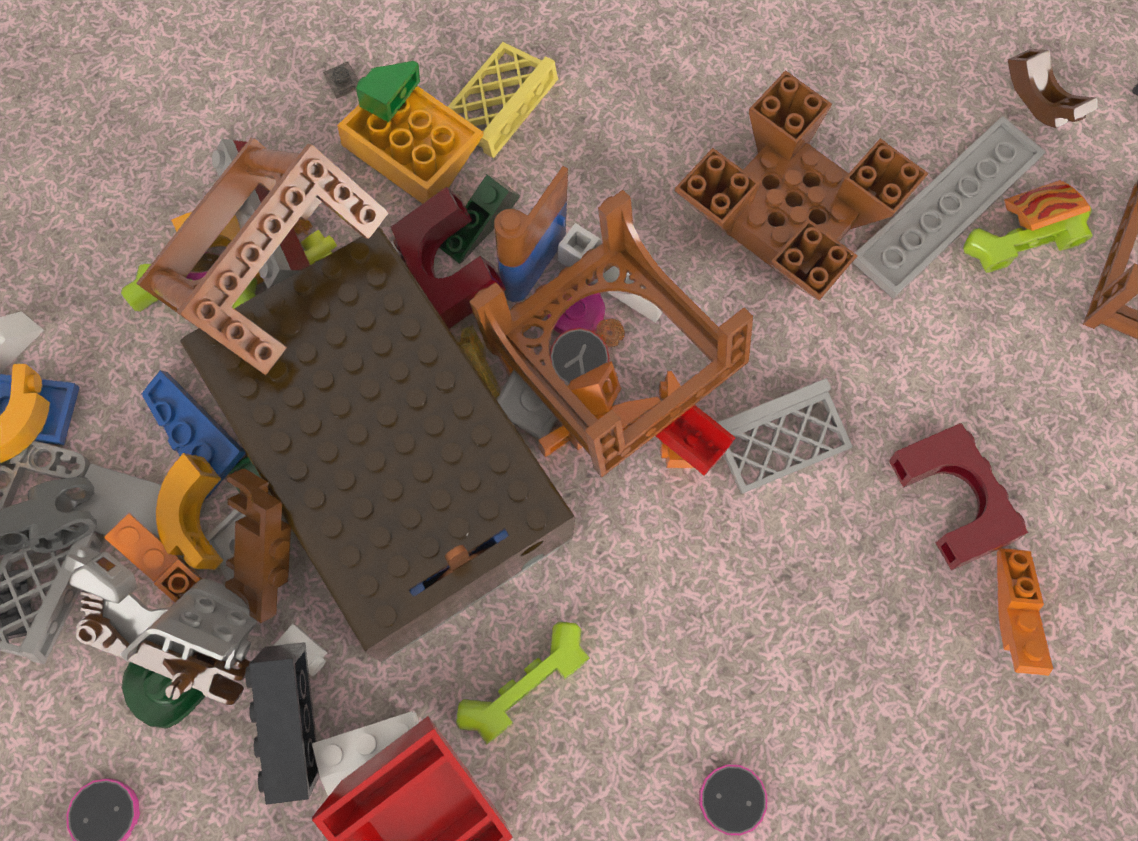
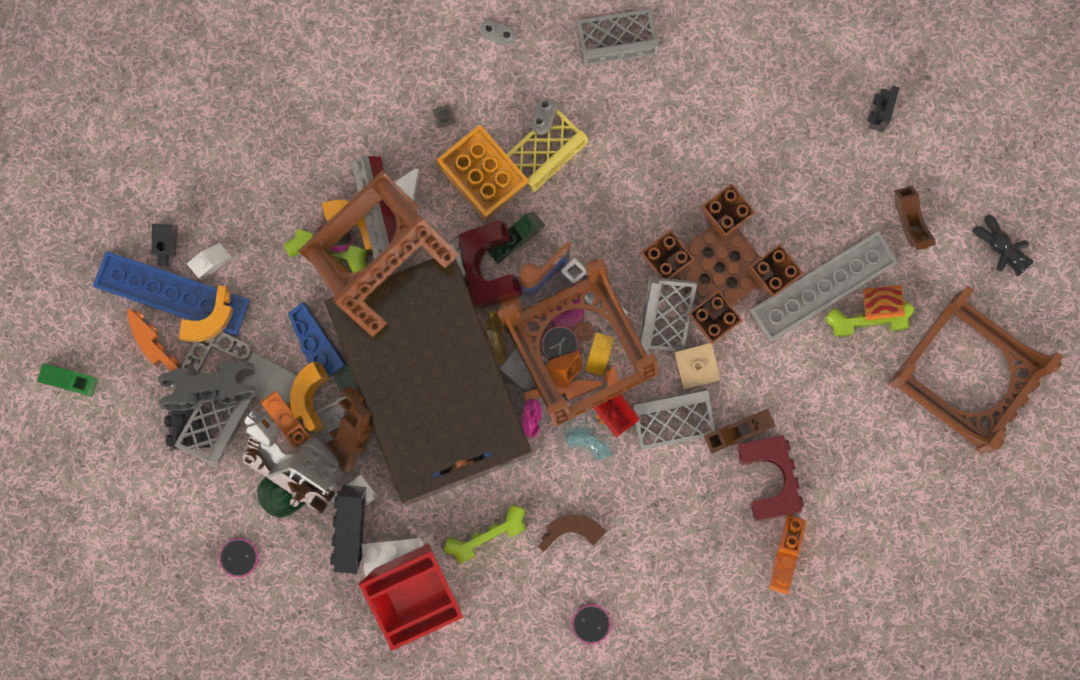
camera: 15 degrees right, 10 degrees up
(387, 88) = (472, 142): green slope -> none
(486, 53) = (543, 114): none -> light grey plate
(560, 471) = (531, 415): none -> dark pink tile
(644, 360) = (599, 354): none -> yellow slope
(659, 494) = (590, 440): none -> clear light blue cylinder
(672, 632) = (572, 523): none -> reddish brown arch
(708, 267) = (651, 308): none -> light grey fence
(796, 350) = (697, 366): none -> tan plate
(893, 429) = (739, 431): none -> reddish brown arch

